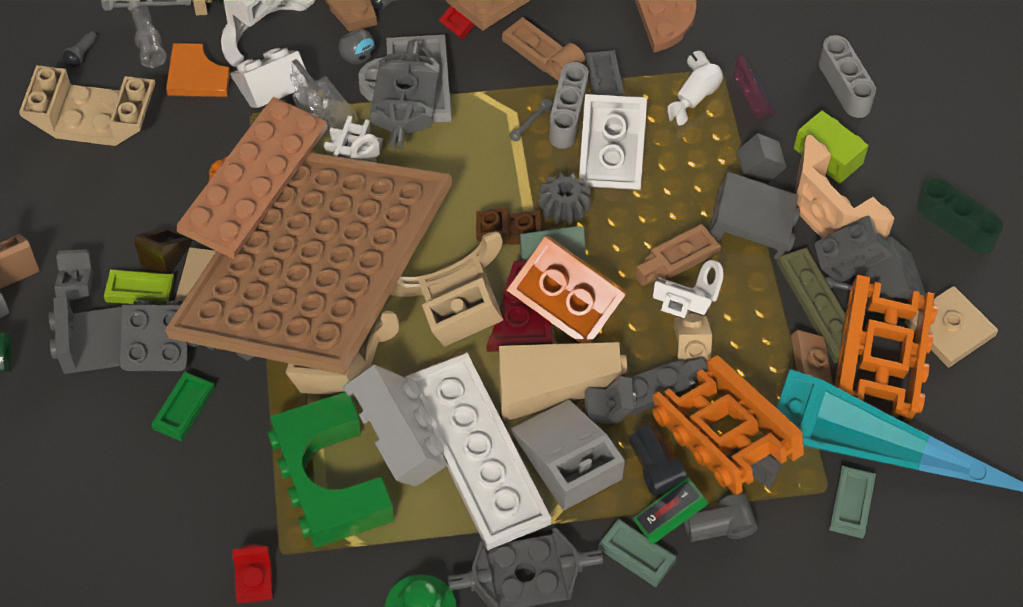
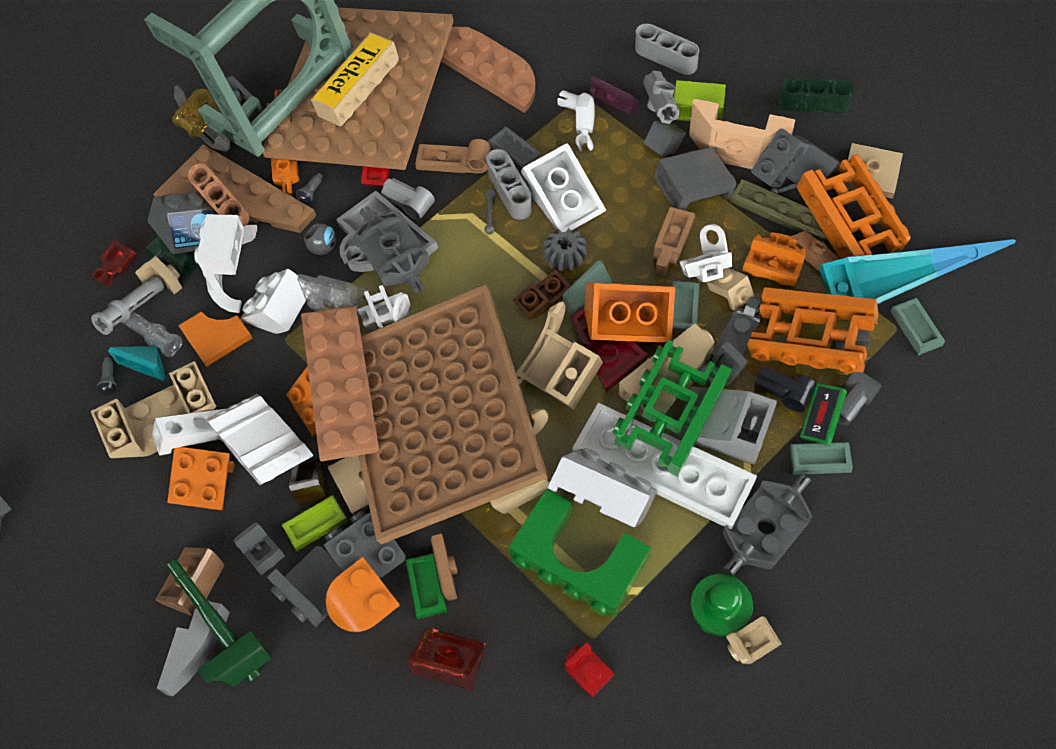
camera: 30 degrees left, 5 degrees up
(79, 183) = (199, 477): none -> orange hinge
(107, 138) = (183, 431): none -> white leg
(115, 372) = (358, 598): none -> orange slope
(118, 50) = (141, 359): none -> teal slope
(144, 476) = (447, 658): none -> clear red slope
(149, 181) = (259, 438): none -> white slope
(209, 400) = (446, 567): none -> medium nougat plate
(469, 63) = (412, 201): none -> light grey piece
(531, 421) = (691, 416): none -> green fence
(633, 324) = (685, 305): none -> sand green tile
(760, 340) = (775, 259): none -> orange slope
(791, 116) = (661, 97): none -> light grey piece

